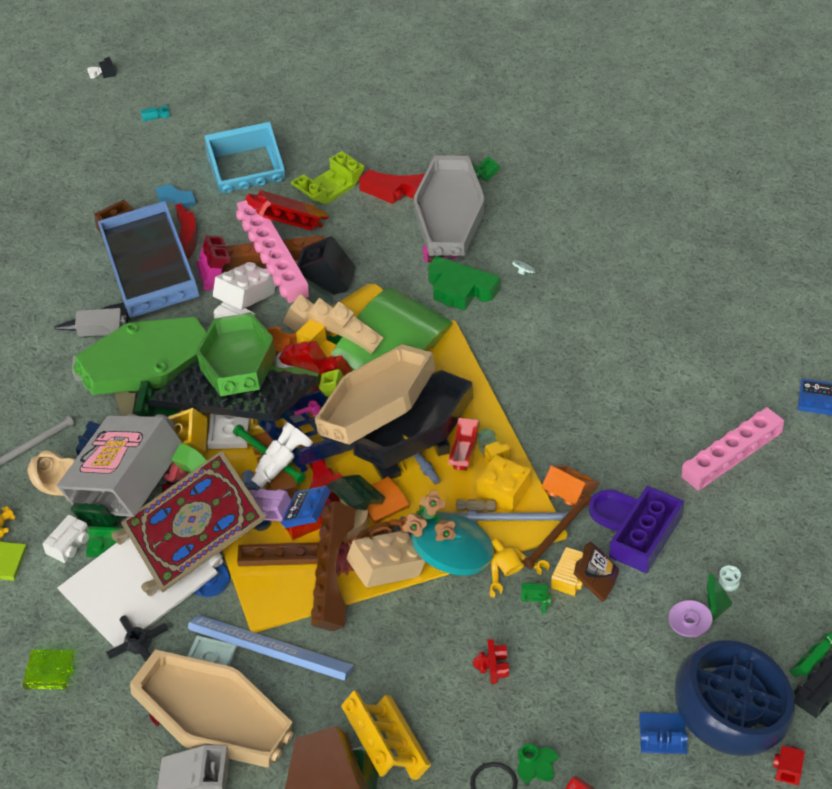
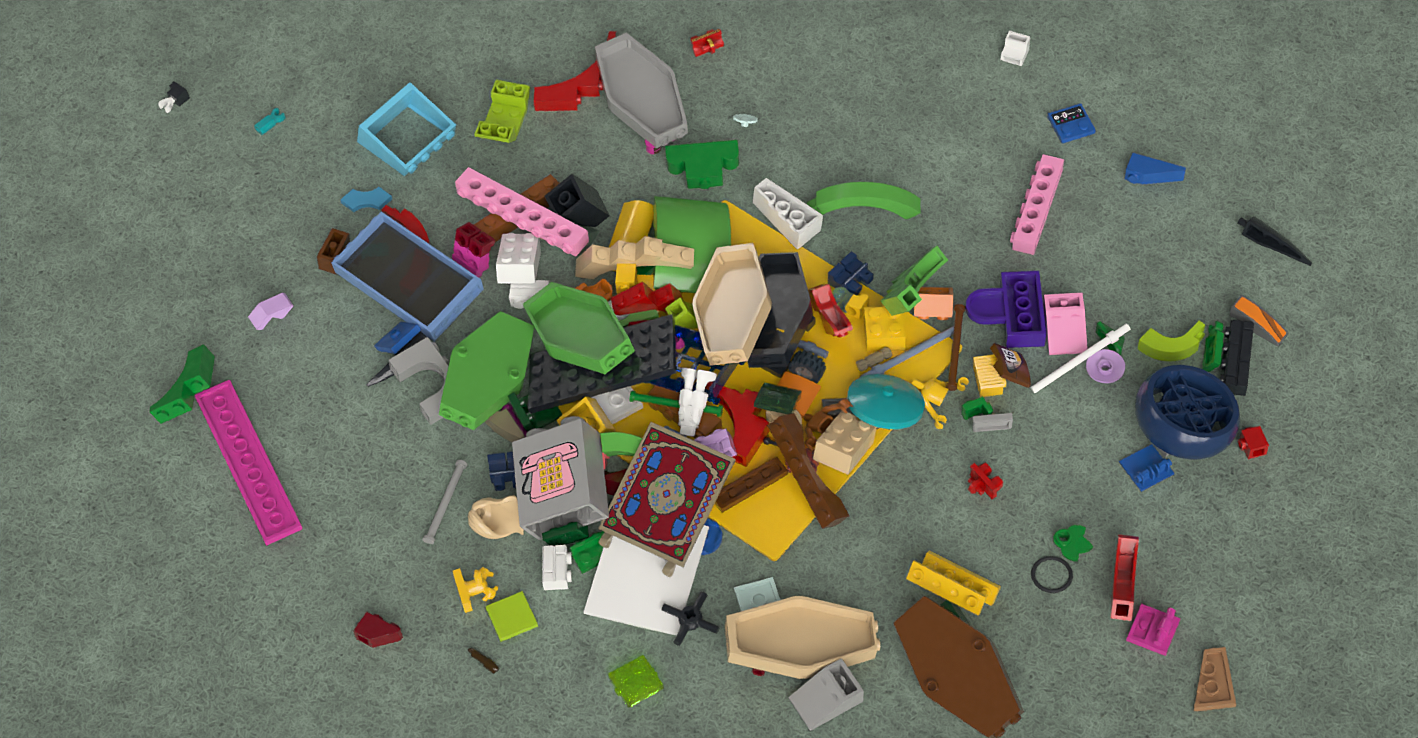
camera: 30 degrees left, 10 degrees up
(35, 238) = (273, 307): none -> lavender slope
(104, 301) = (397, 337): none -> blue plate
(271, 647) = (801, 564): light blue tile -> none
(286, 210) = (504, 166): red hinge -> none
(305, 506) = (750, 433): blue plate -> none
(407, 480) = (807, 366): none -> black wheel
(428, 510) = (860, 380): medium nougat plant -> none
(486, 169) = (639, 32): green bracket -> none
(497, 355) = (787, 213): none -> white wedge
(510, 424) = (849, 274): none -> dark blue hips
(539, 197) = (707, 42): none -> red hips
(542, 456) = (904, 292): none -> bright green arch
(542, 614) = (992, 422): none -> light grey tile
(575, 366) = (867, 194): none -> bright green arch
(679, 561) = (1065, 323): none -> bright pink slope
(710, 593) = (1111, 337): none -> white bar
(730, 573) = (1111, 312): light aqua wheel -> none
(771, 636) = (1171, 349): none -> lime arch
(811, 313) = (1015, 48): none -> white piece

